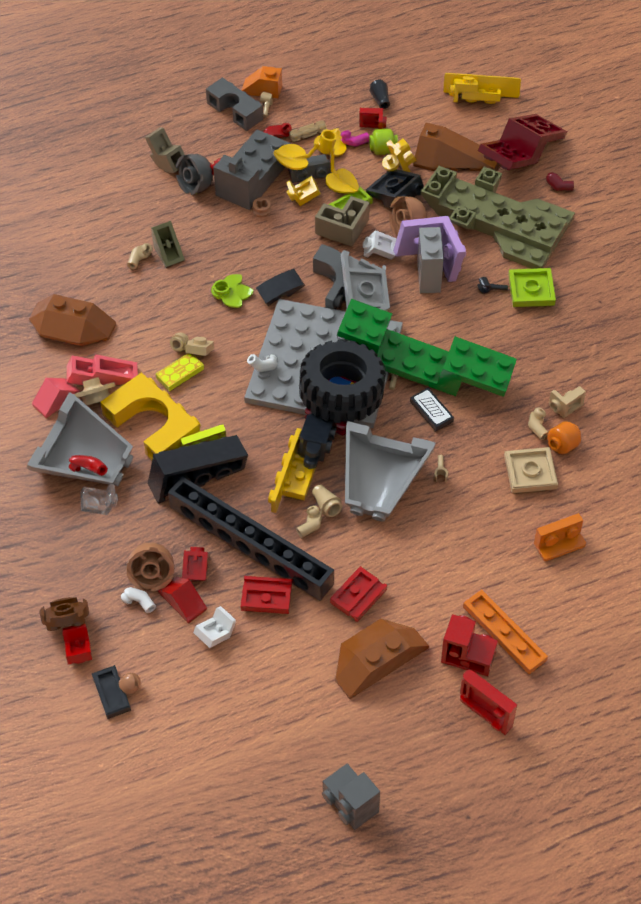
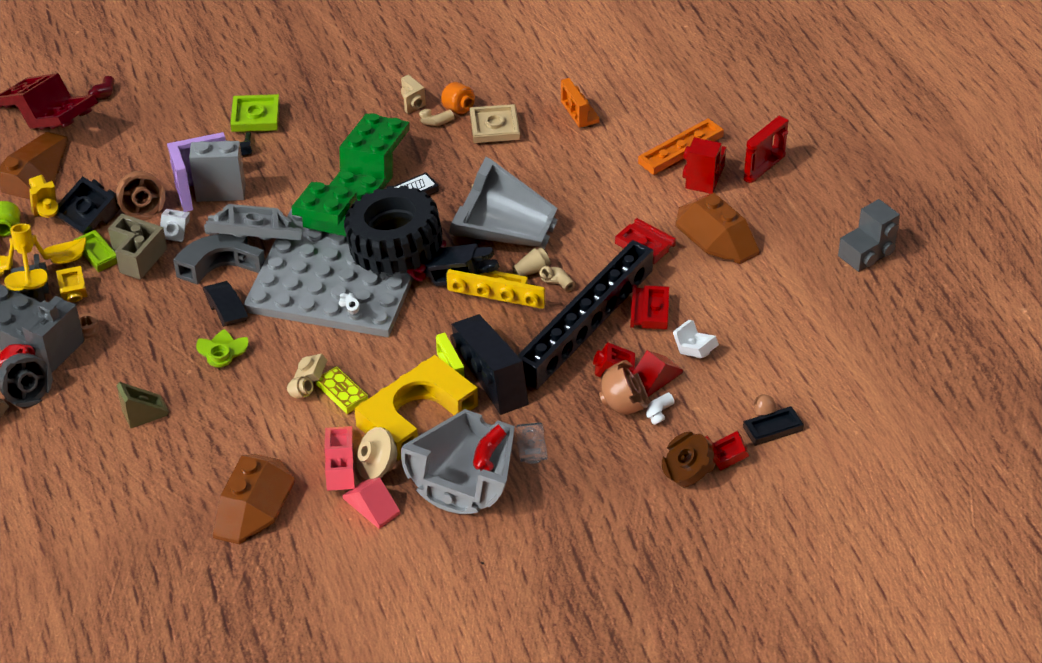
camera: 90 degrees left, 10 degrees down
(139, 253) = (145, 437): tan arm -> none
(523, 230) = (155, 117): olive piece -> none

